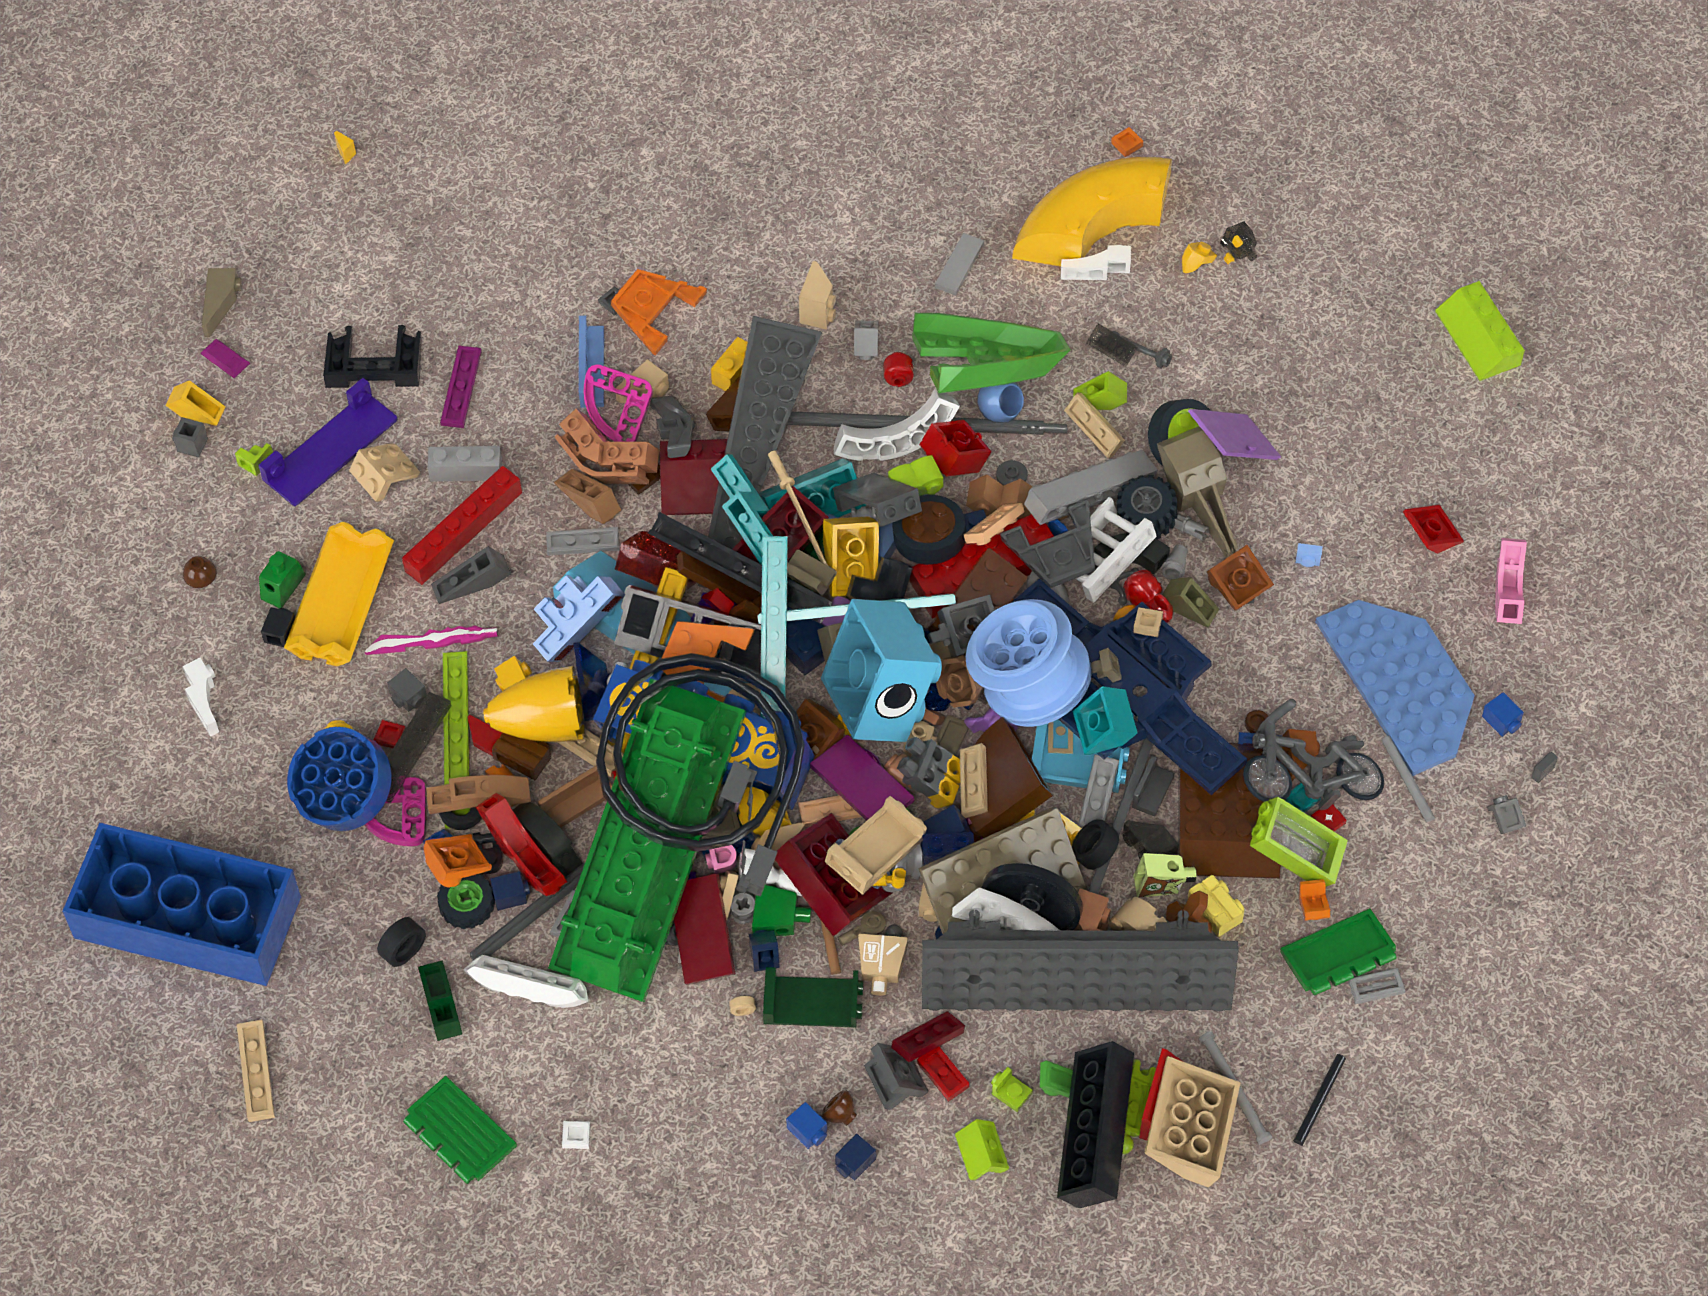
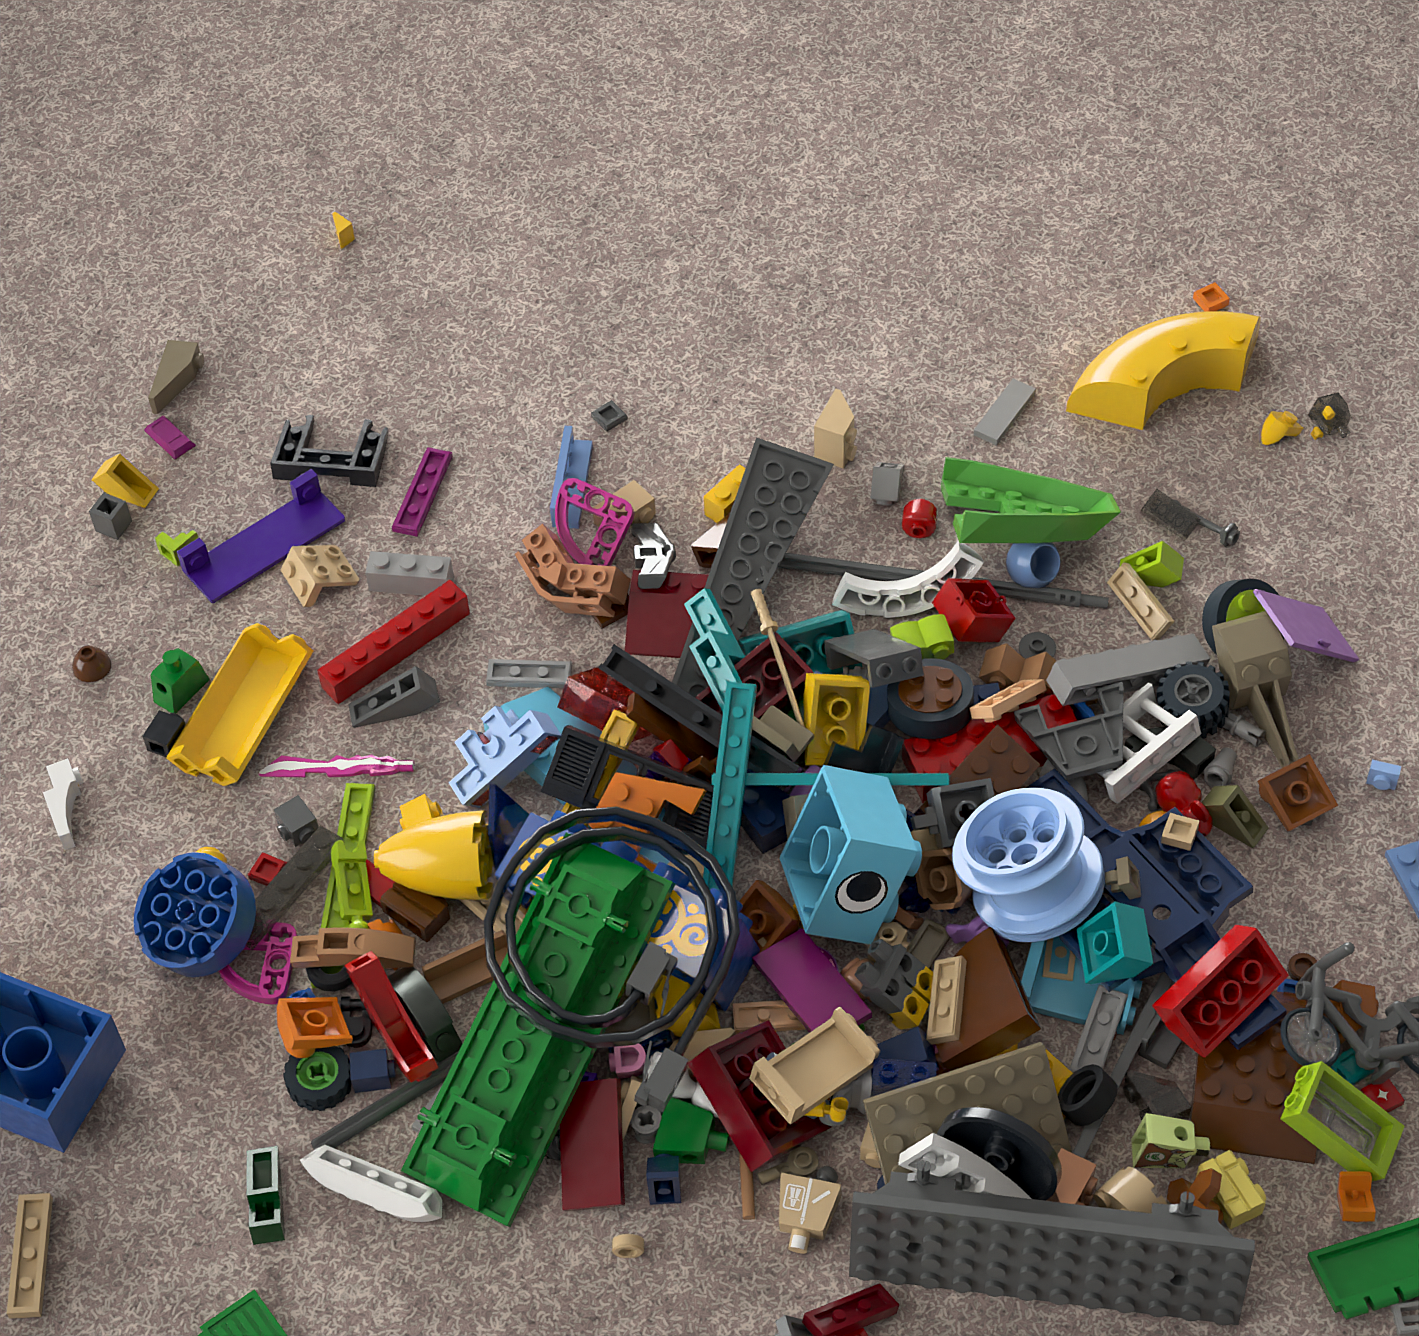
camera: 10 degrees right, 5 degrees down
(401, 941) = (230, 1117): black tyre -> none
(465, 738) = (352, 883): none -> lime plate
(589, 495) = (545, 623): medium nougat slope -> none
(645, 298) = (643, 416): orange wing -> none
(811, 1000) = (713, 1249): dark green panel -> none
(1095, 267) = (1162, 427): white slope -> none
(1193, 748) = (1221, 989): none -> red slope

